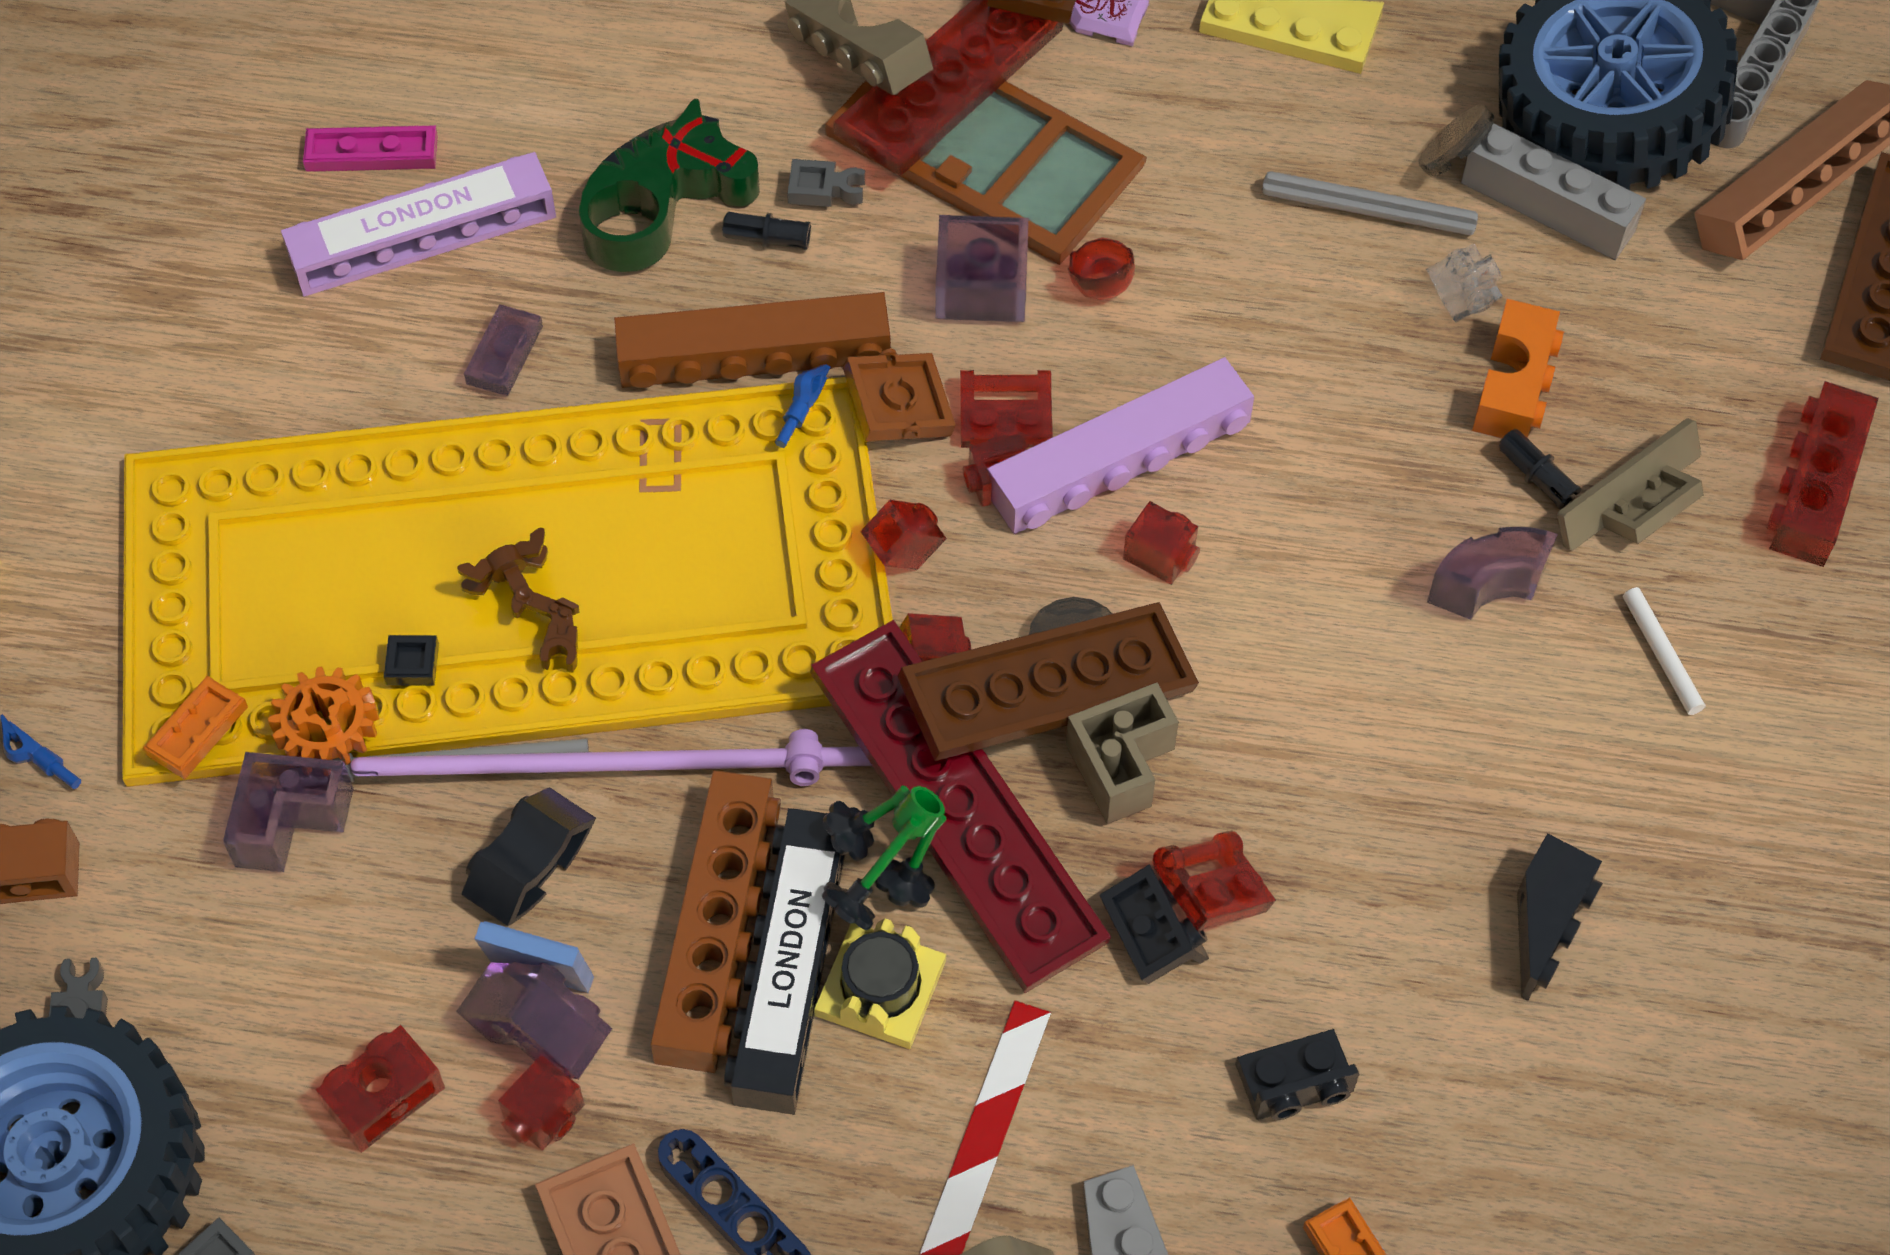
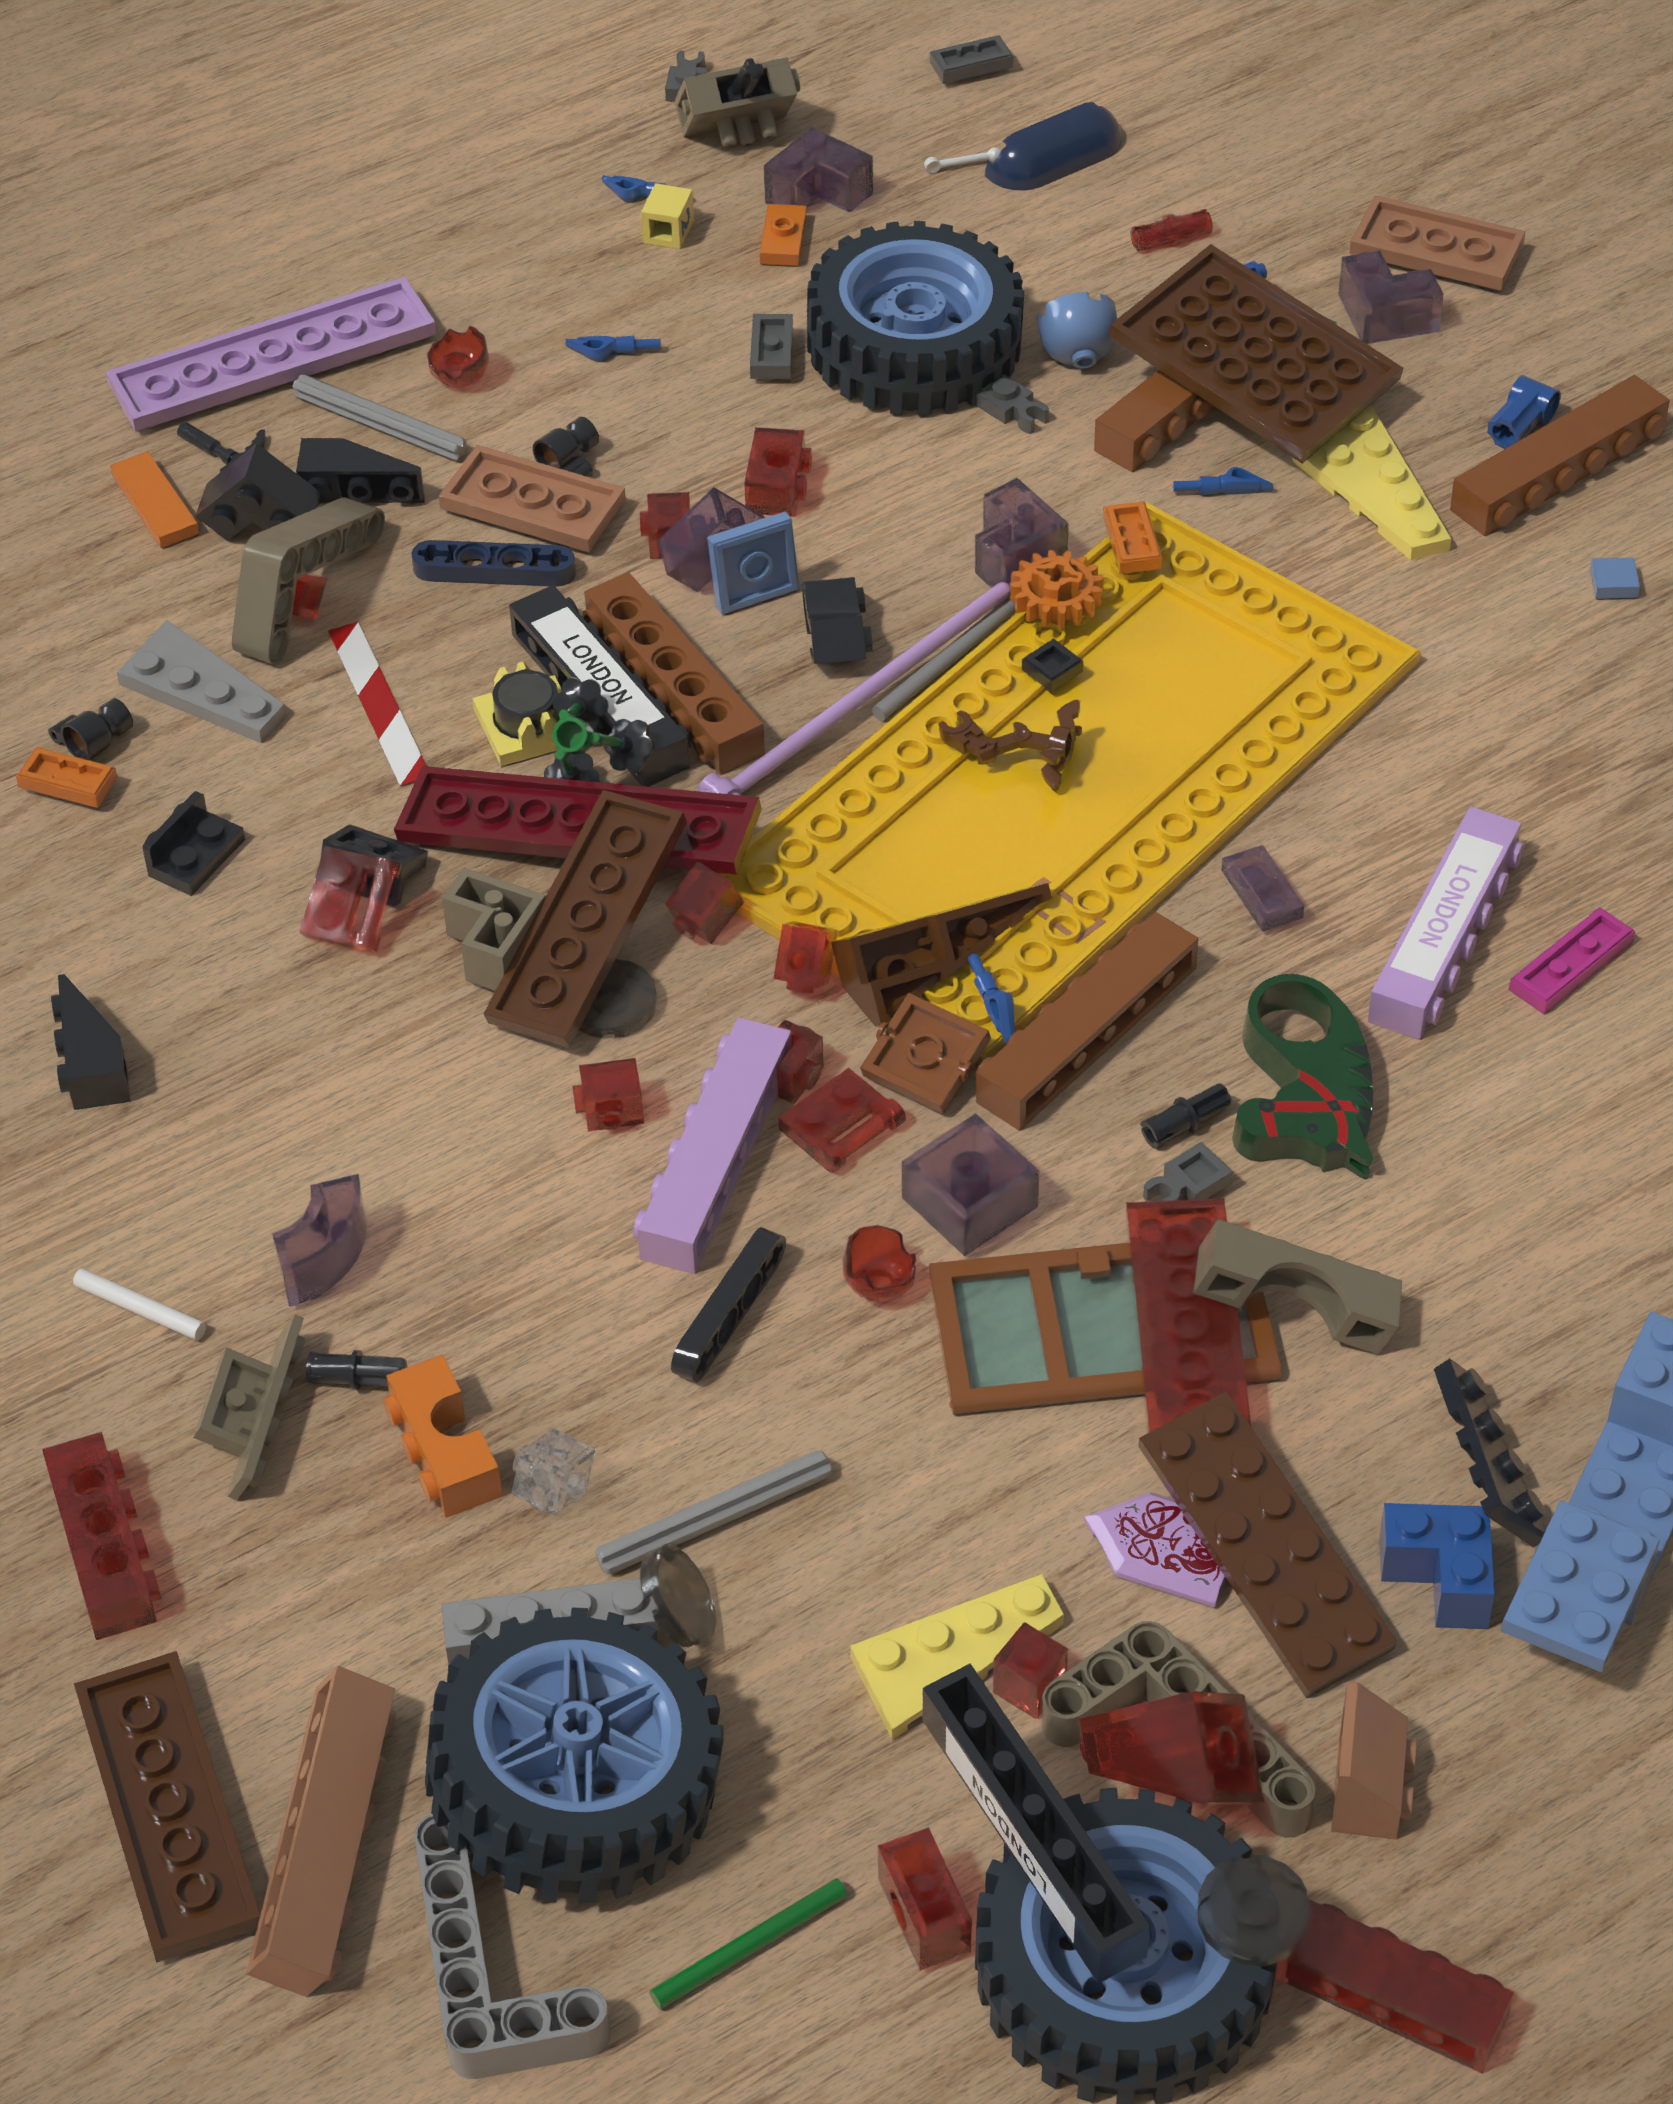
camera: 140 degrees right, 10 degrees down
(827, 476) = (916, 954): none -> reddish brown wedge
(1228, 323) = (728, 1305): none -> black beam

